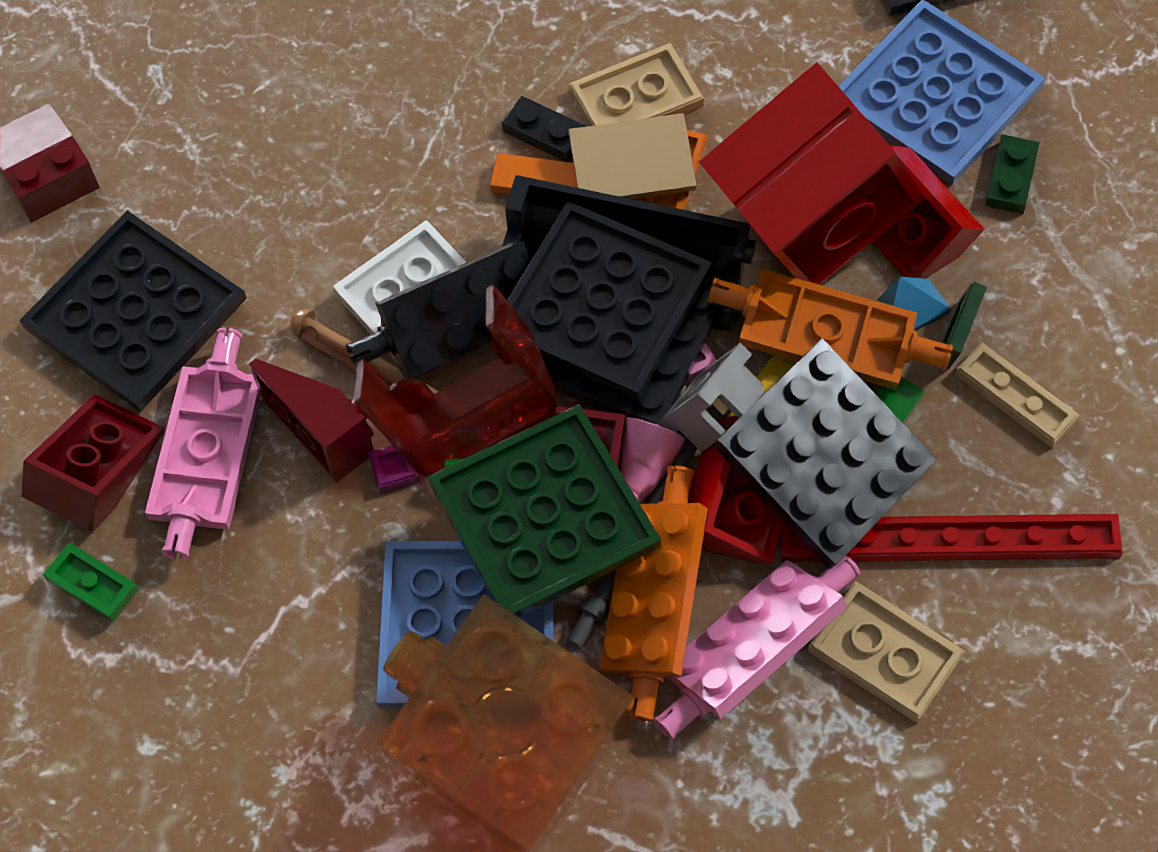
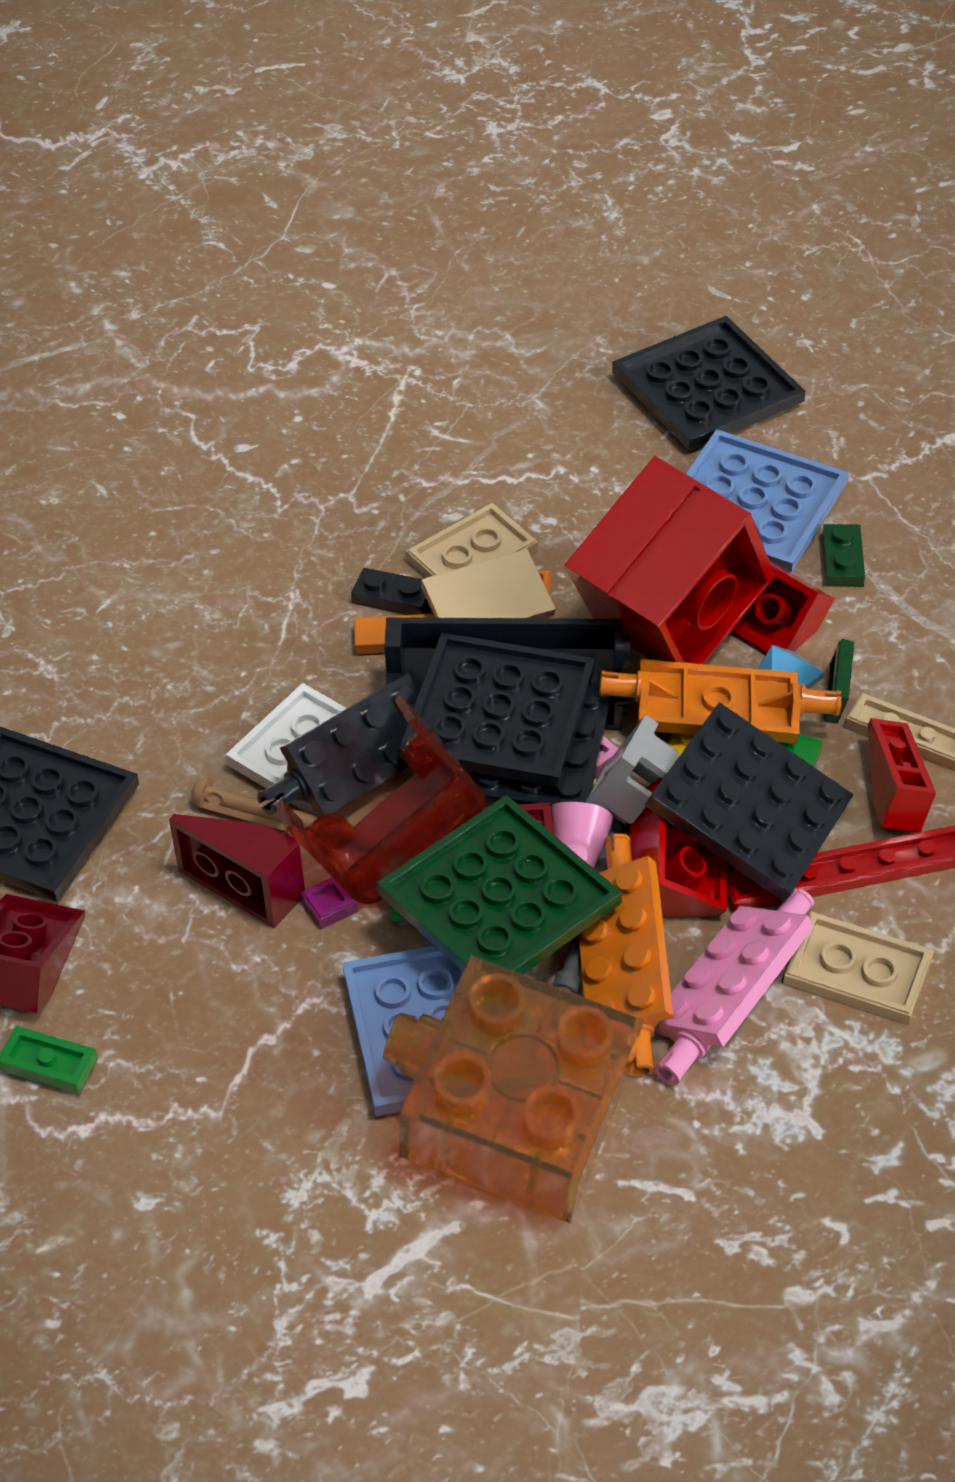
camera: 15 degrees left, 15 degrees down
(204, 447) = (133, 916): bright pink plate -> none
(986, 450) = (898, 777): none -> red slope

